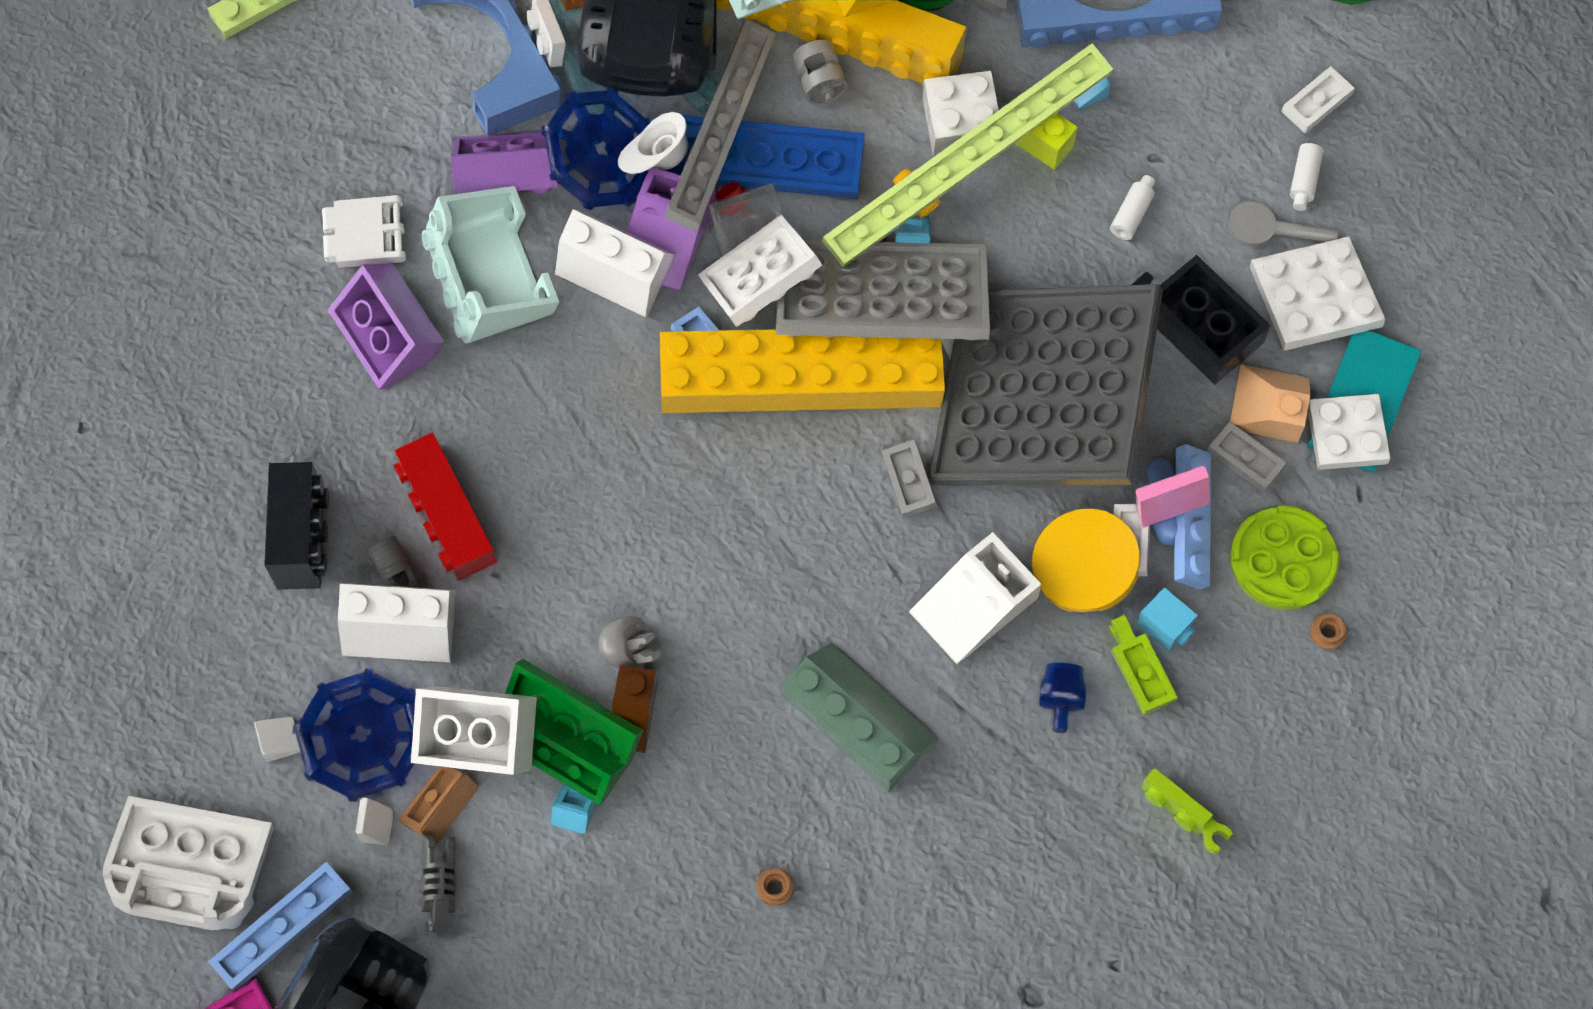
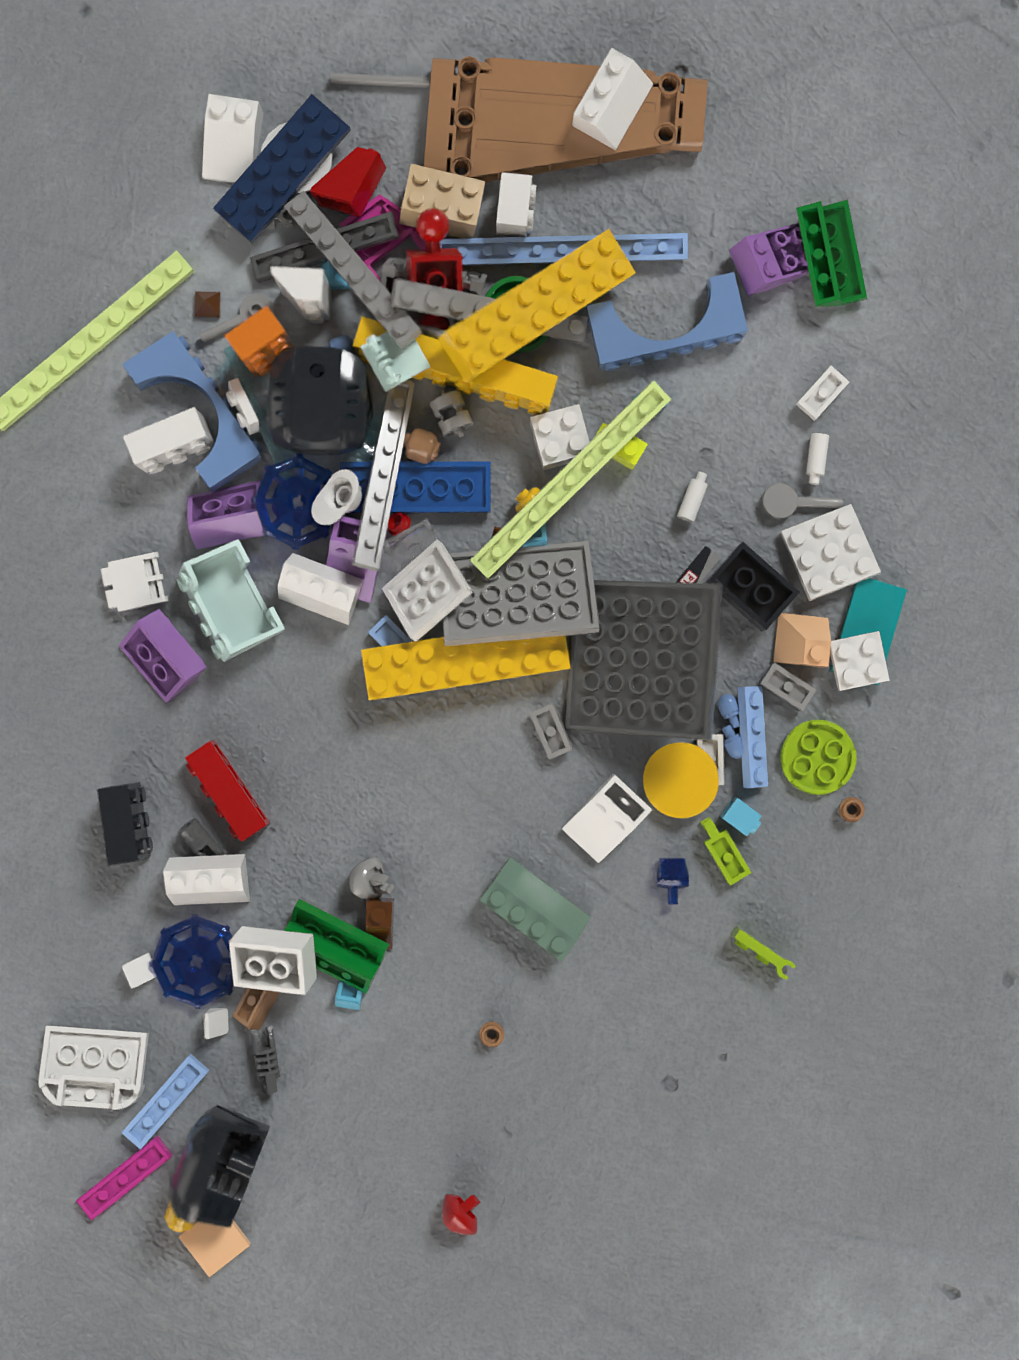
camera: 15 degrees left, 20 degrees up
(443, 60) = (169, 441): none -> white brick
(775, 104) = (421, 445): none -> medium nougat head
(1173, 496) = (739, 738): bright pink tile -> none

